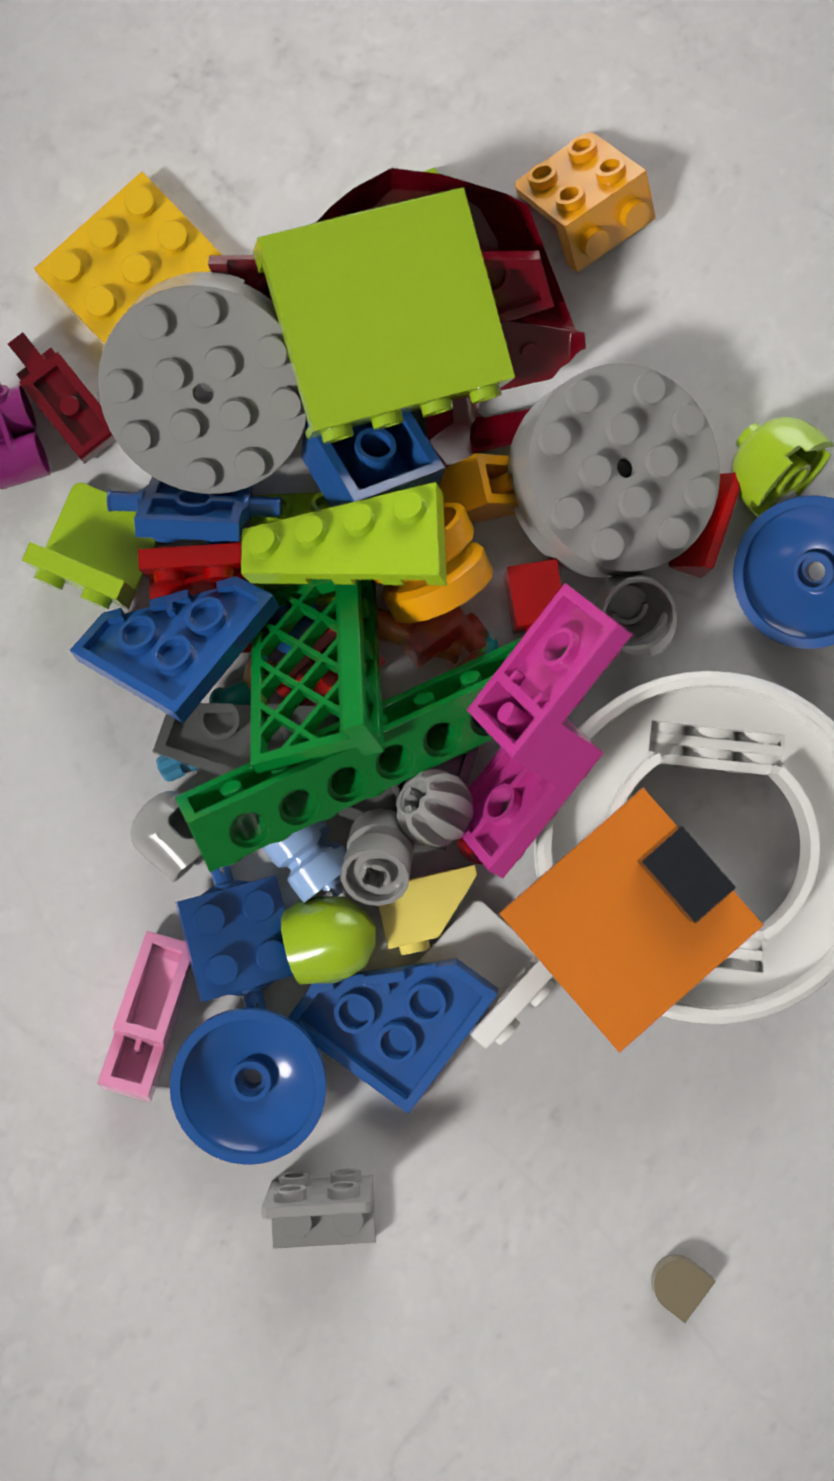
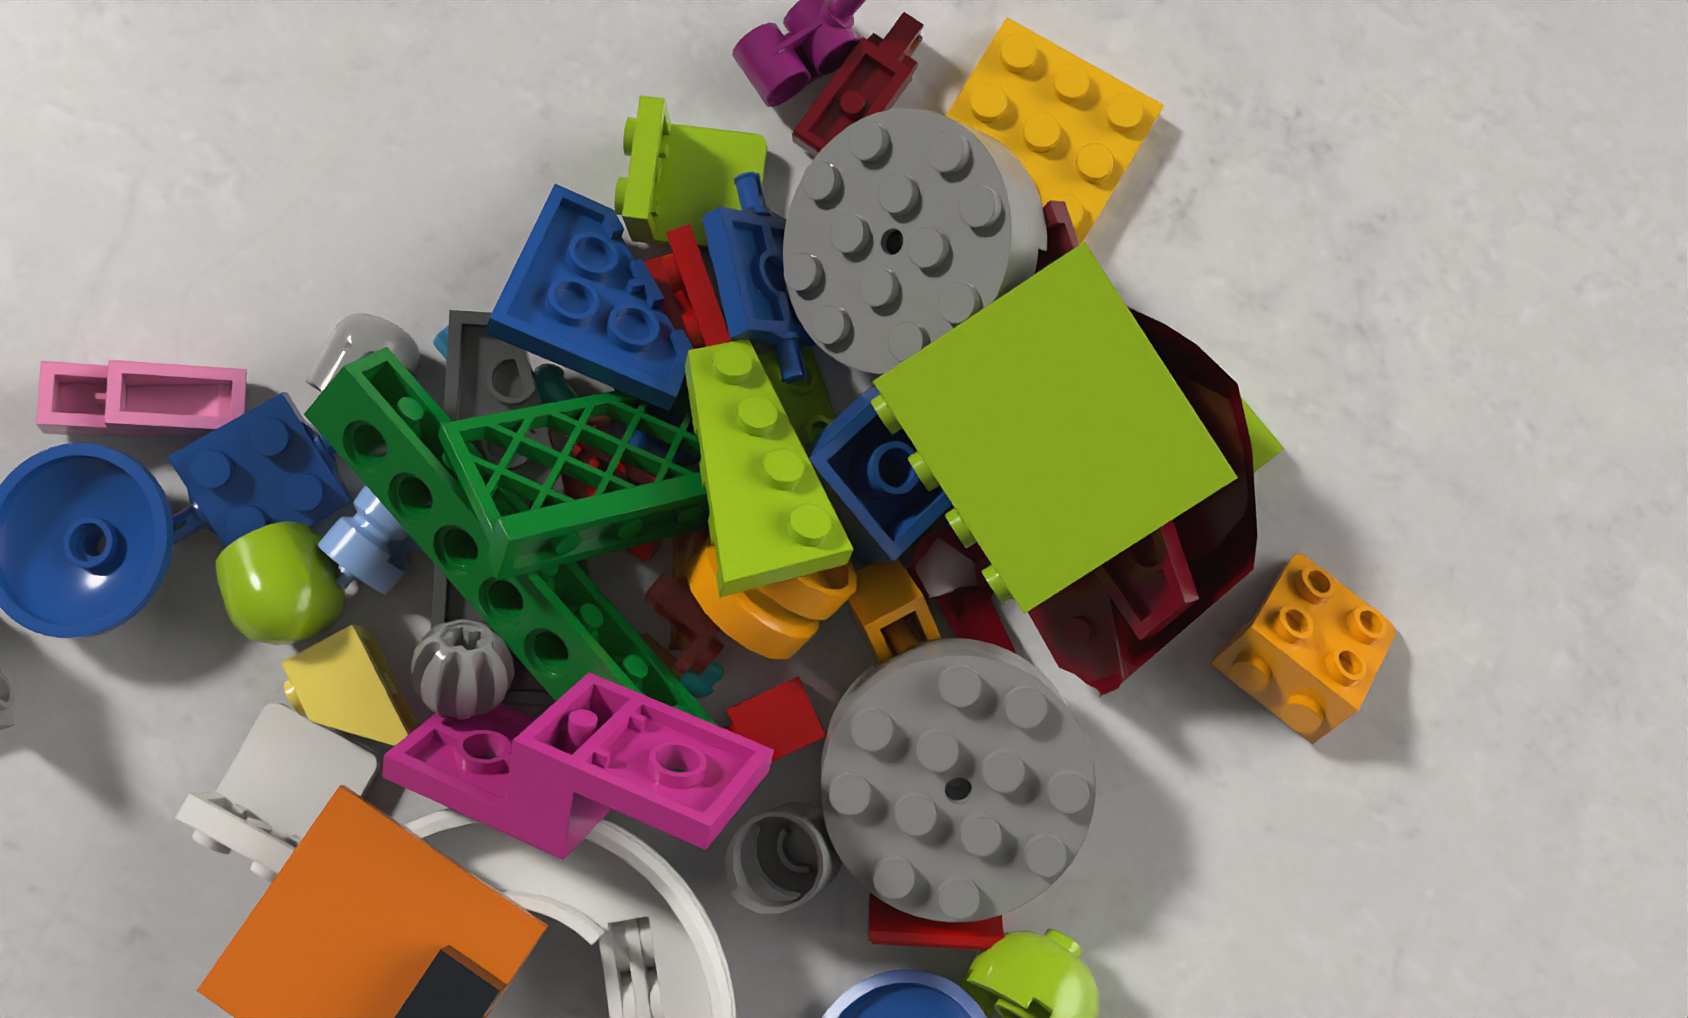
camera: 75 degrees right, 5 degrees down
(377, 858) = (382, 615): light grey wheel -> none
(396, 1023) = (197, 700): blue plate -> none

